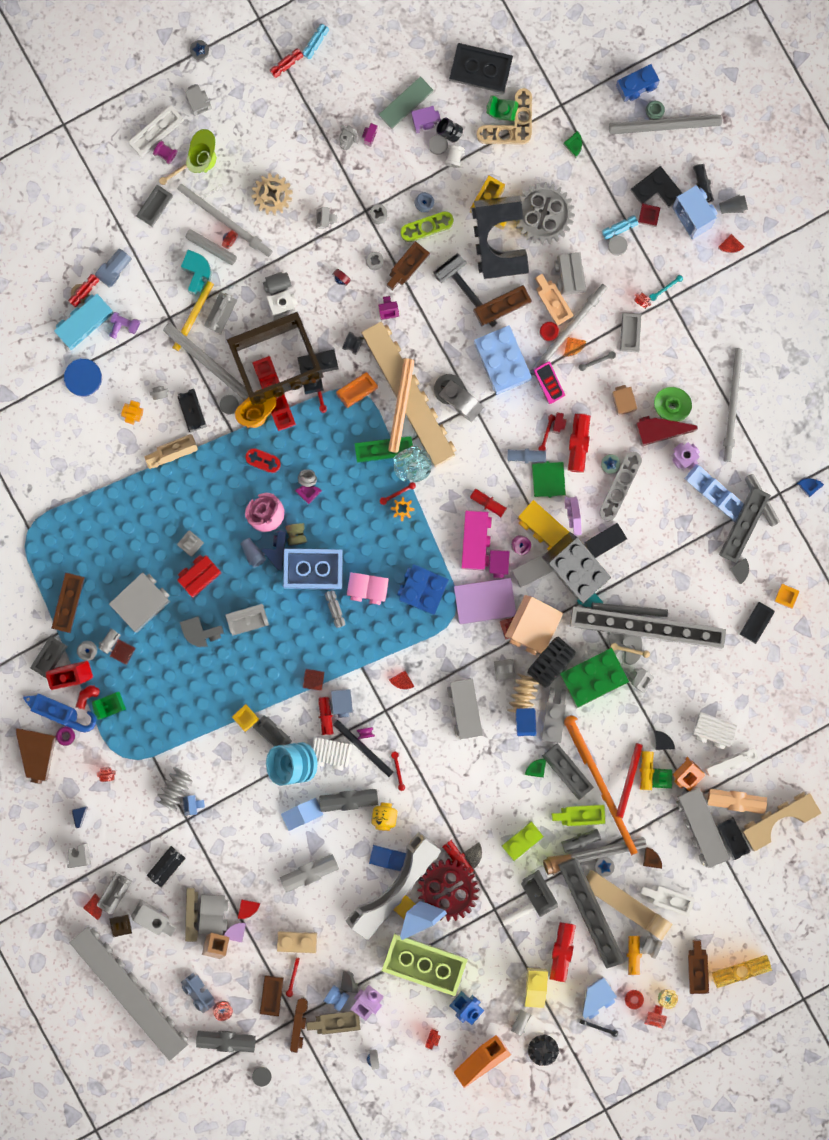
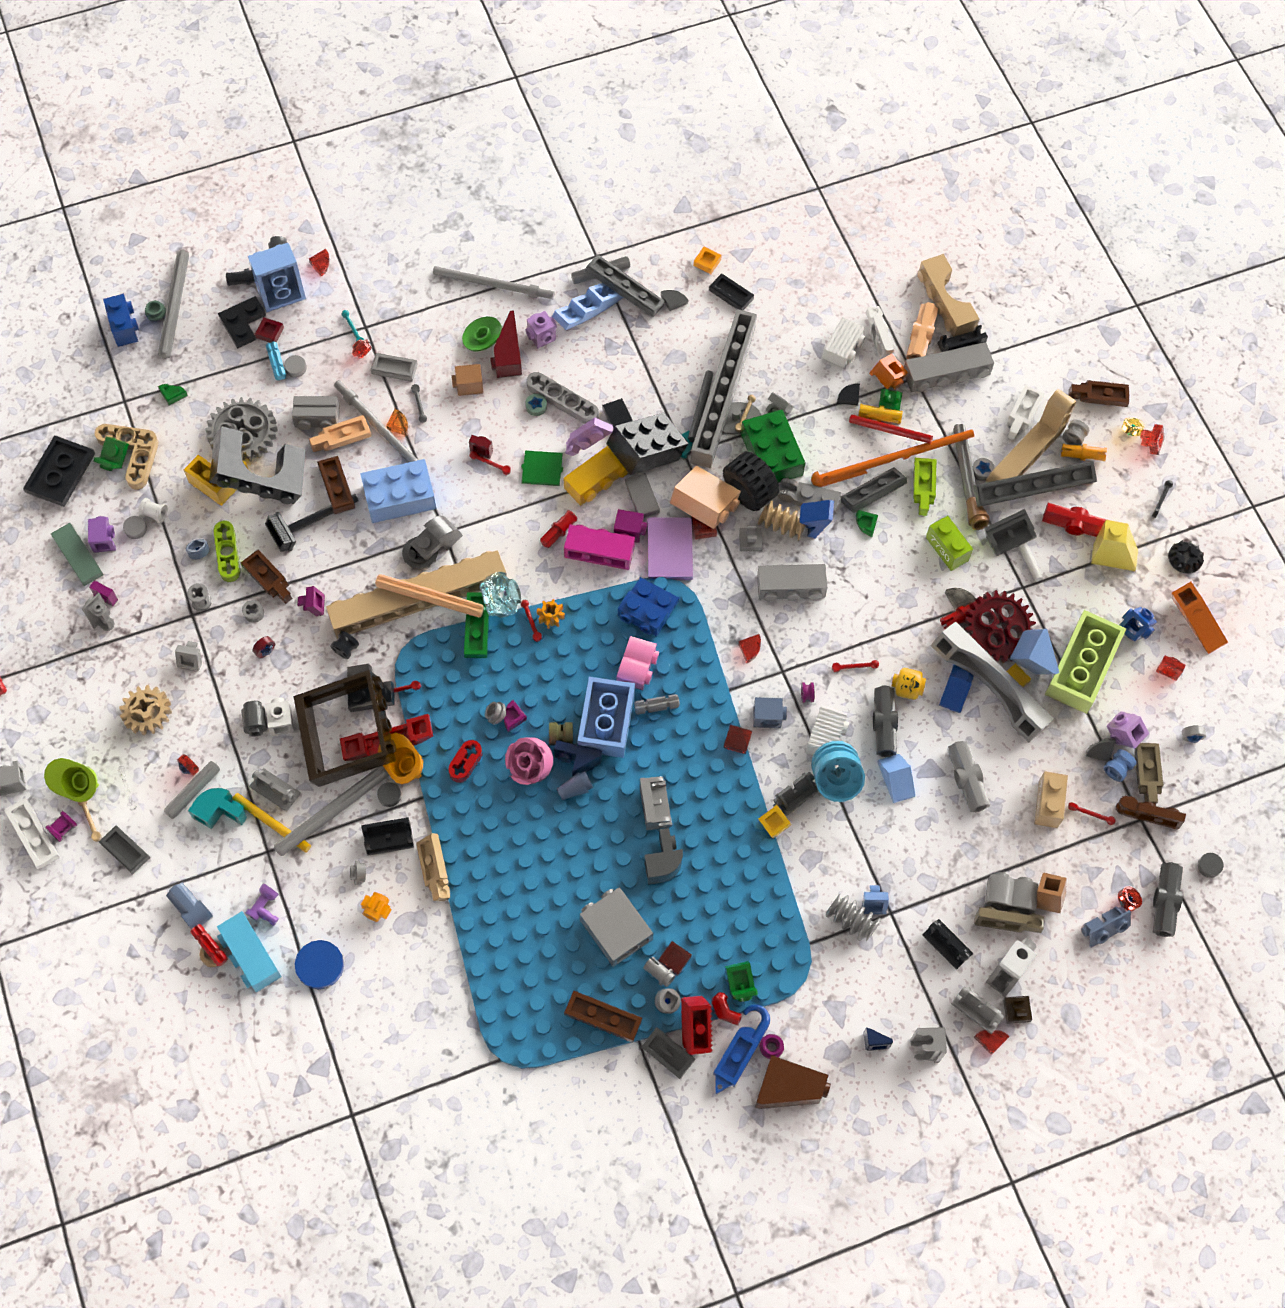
camera: 85 degrees left, 20 degrees down
(106, 774) = (826, 1000): clear red plate -> none
(129, 993) = (1102, 1009): light grey brick -> none
(190, 543) = (551, 858): light grey tile -> none
(199, 575) = (593, 851): red brick -> none
(236, 932) = (1033, 869): lavender tile -> none
(248, 908) = (1006, 854): red tile -> none
(254, 242) = (198, 739): light grey bar -> none
(271, 995) = (1112, 841): reddish brown tile -> none
(325, 716) = (781, 734): red axle -> none
(356, 390) = (400, 647): orange tile -> none
(363, 748) = (826, 698): black bar -> none
(450, 130) = (120, 509): black wheel -> none
(521, 545) = (611, 502): magenta tile -> none
(521, 1022) = (1154, 574): light grey pin -> none
(526, 455) = (511, 483): sand blue pin -> none
(549, 331) = (375, 445): red tile -> none
(549, 382) = (434, 450): slope -> none
(579, 443) = (507, 429): red piece -> none
(581, 840) = (952, 487): dark grey pin -> none
(597, 996) = (1129, 493): light blue slope -> none
(629, 995) = (1131, 464): clear red plate -> none
(652, 859) = (978, 423): reddish brown tile -> none
(729, 974) = (1108, 361): clear yellow piece -> none
(810, 486) = (593, 226): blue tile -> none

